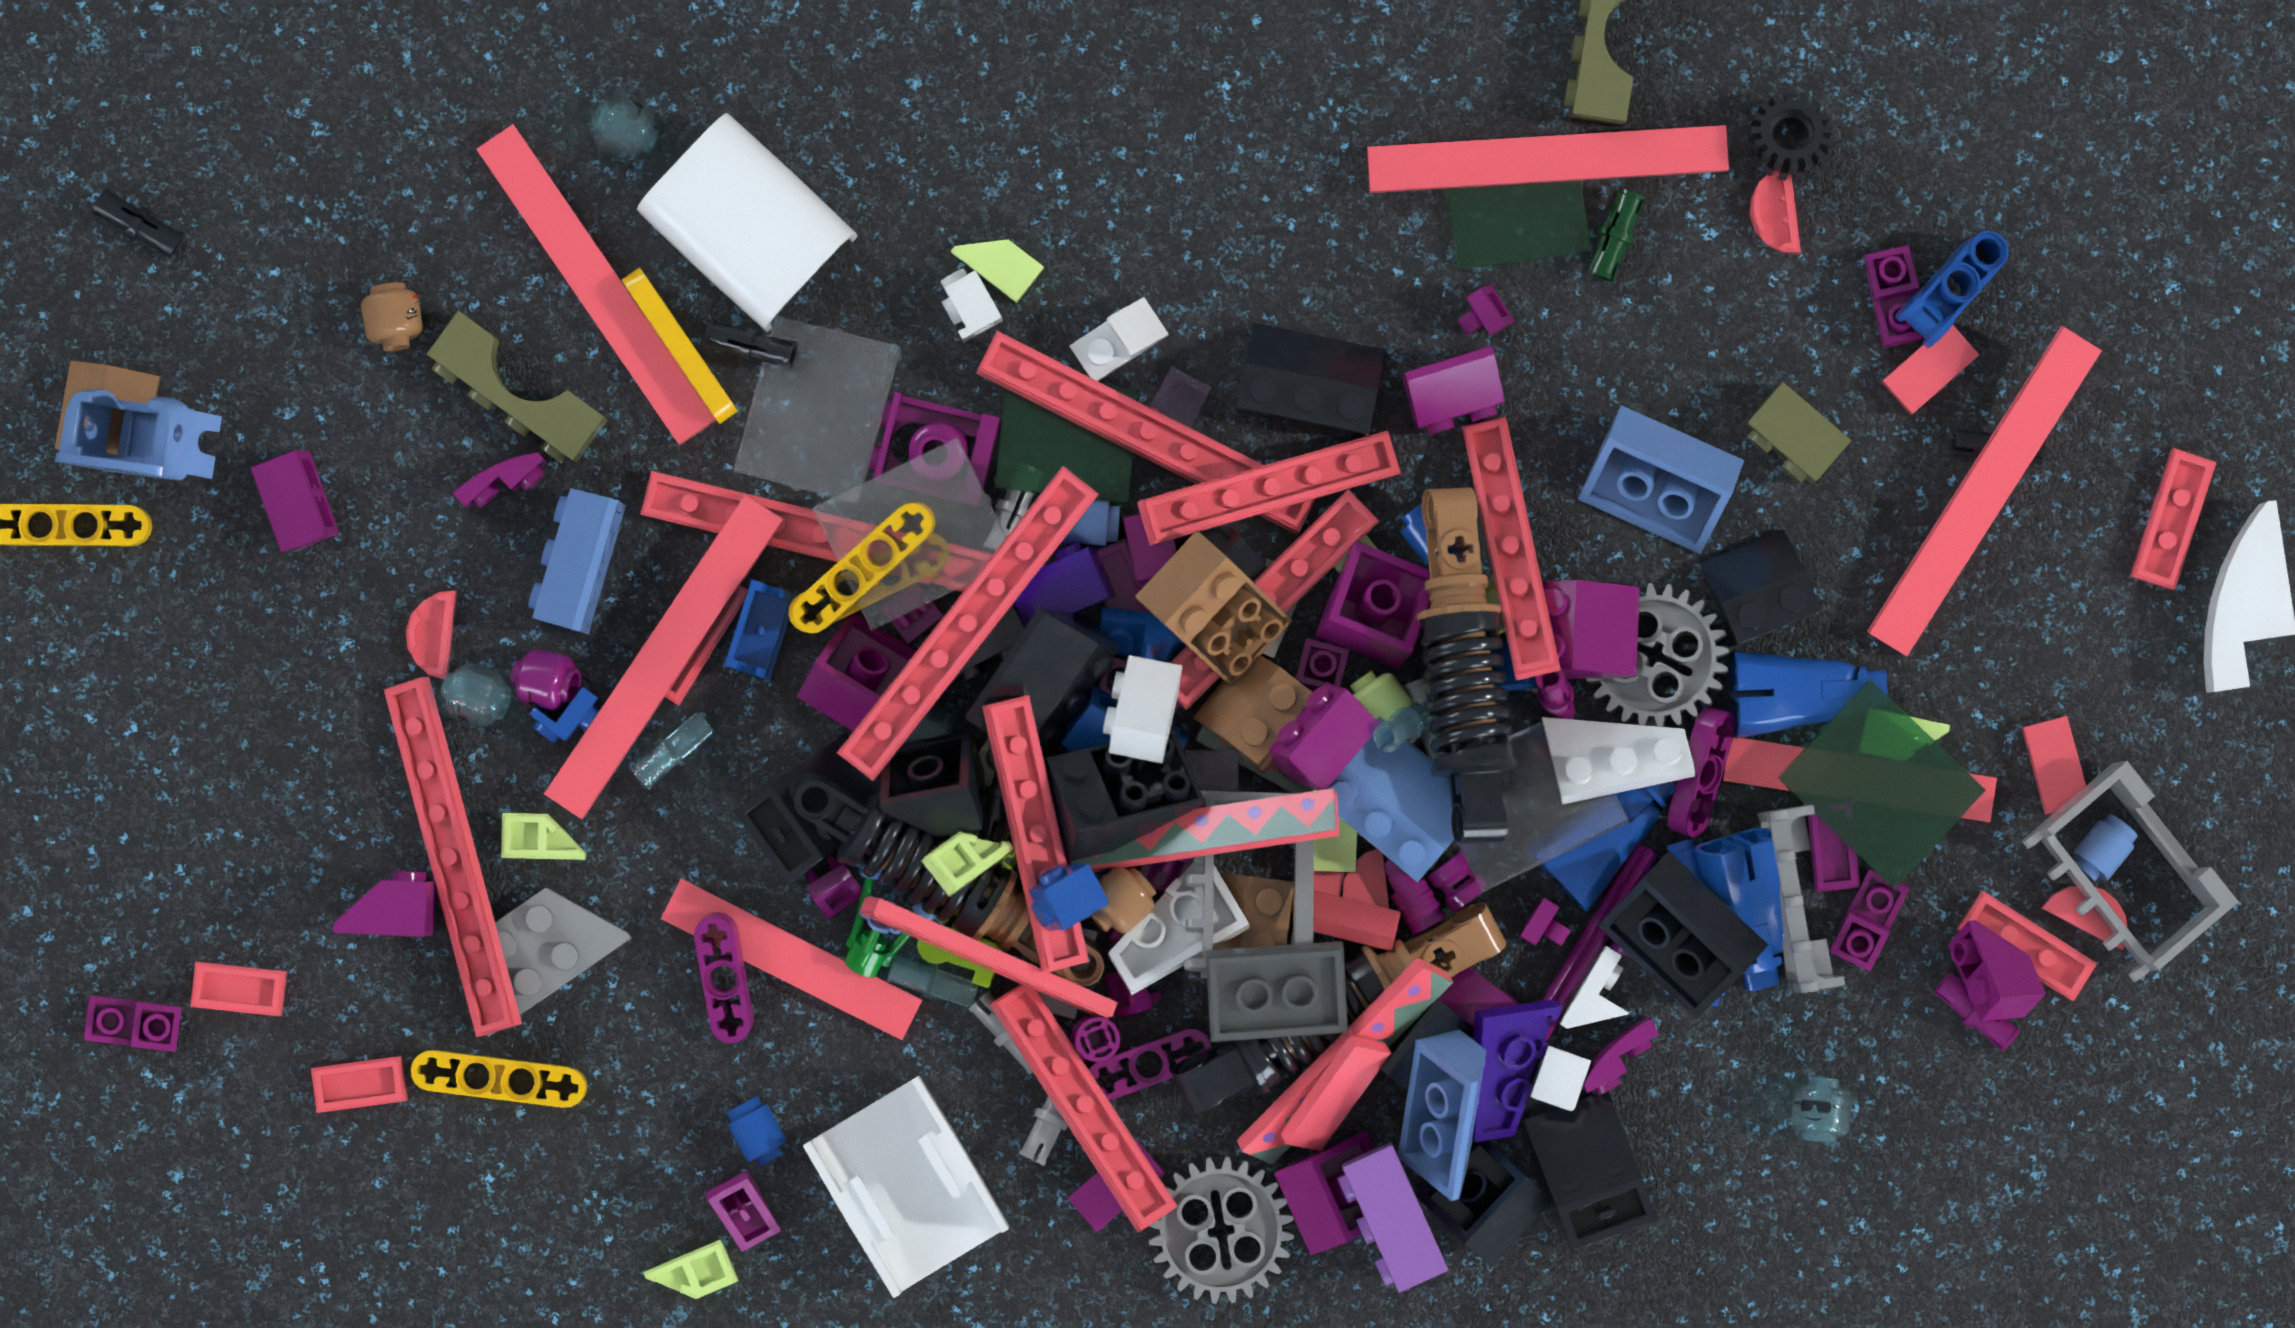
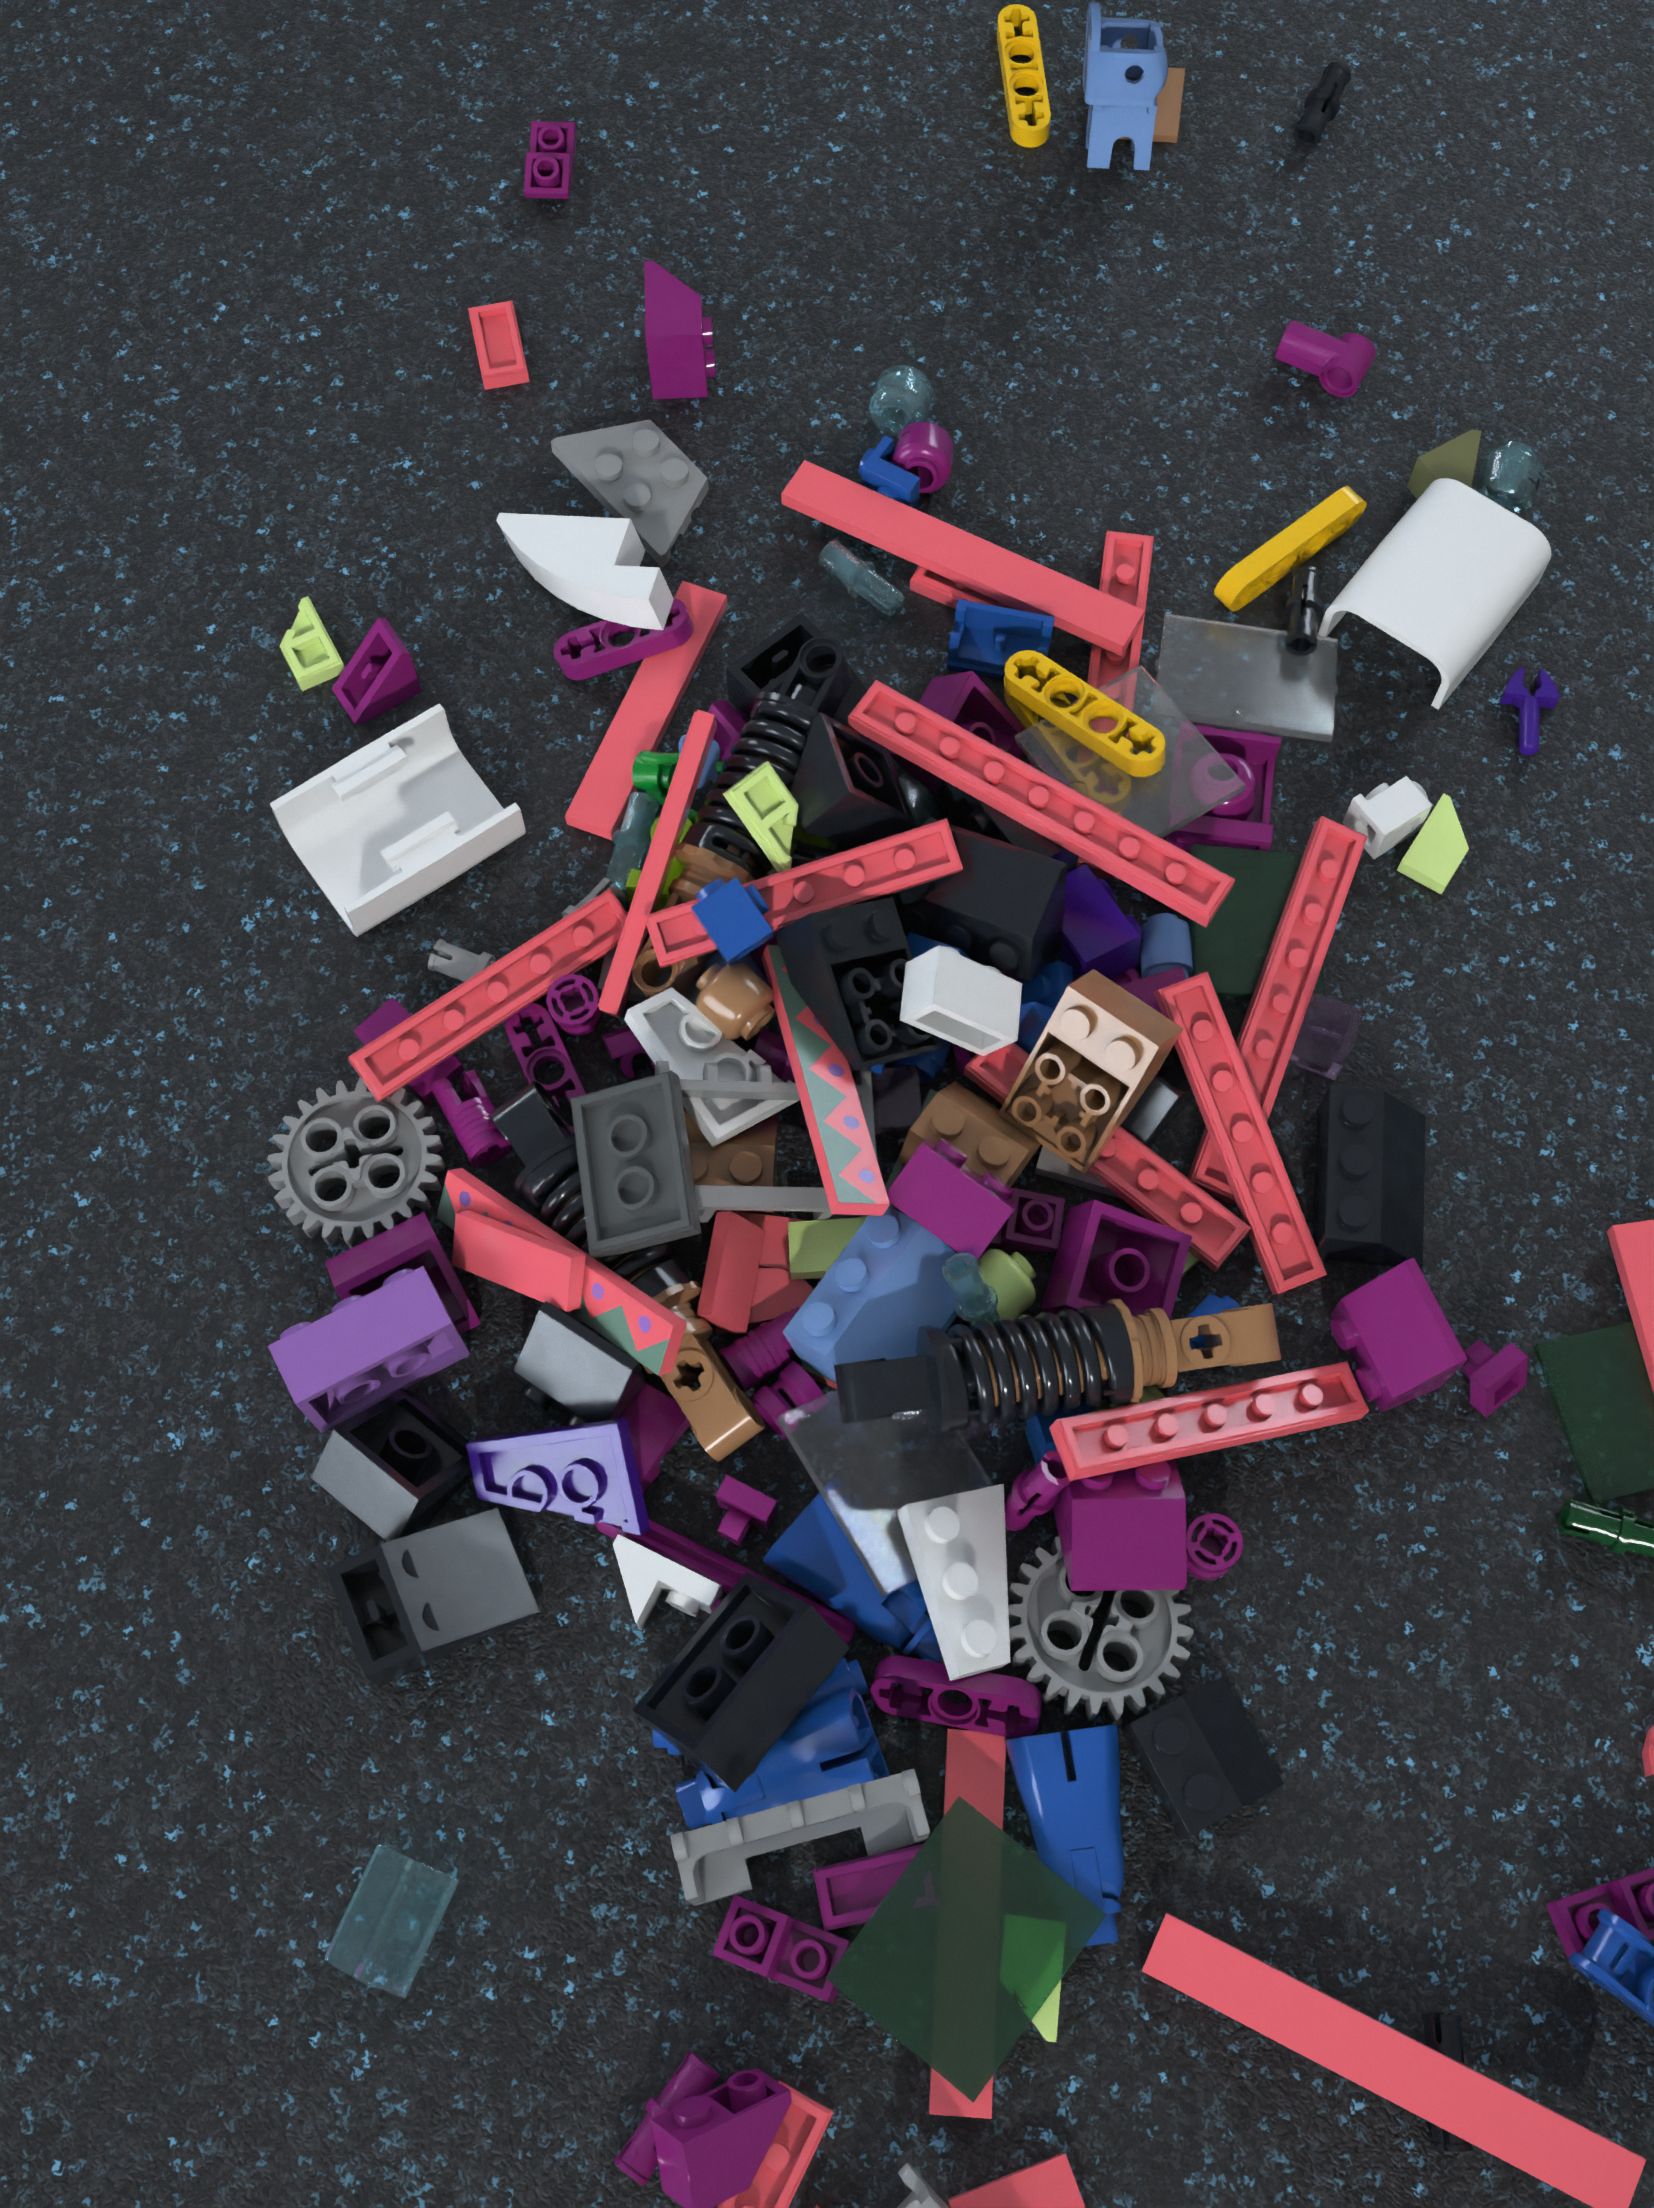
camera: 90 degrees right, 20 degrees down
(238, 988) = (588, 242): coral tile -> none
(295, 500) = (1076, 242): magenta hinge -> none
(391, 316) = (1273, 300): medium nougat head -> none
(431, 633) = (961, 368): coral tile -> none
(452, 856) = (729, 393): coral tile -> none
(466, 265) = (1337, 362): none -> magenta piece
(470, 354) = (1242, 374): olive arch -> none
(499, 1074) = (505, 457): yellow beam -> none
(515, 473) = (1118, 391): magenta slope -> none
(537, 838) = (759, 472): yellowish green tile -> none
(577, 560) = (1048, 477): medium blue slope -> none
(596, 284) = (1351, 464): coral tile -> none
(614, 183) = (1451, 460): none -> olive slope
(652, 1005) = (591, 566): none -> white slope
(756, 1131) = (460, 682): blue brick -> none
(866, 154) = (1529, 706): none -> dark purple bar
(1119, 339) = (1381, 976): white slope -> none
(1194, 1128) = (472, 1119): none -> magenta hinge
(1442, 1109) = (501, 1392): medium blue slope -> none
(1559, 1078) = (552, 1544): white panel -> none
(1596, 562) = (1203, 1551): none -> magenta wheel
(1607, 1064) = (571, 1609): magenta slope -> none
(1661, 479) = (1325, 1612): medium blue slope -> none
(1795, 434) = (1414, 1787): olive brick -> none
(1822, 1111) = (520, 1900): clear light blue head -> none
(1825, 1210) = (390, 1921): none -> clear light blue panel
(1929, 370) = (1534, 1972): coral tile -> none

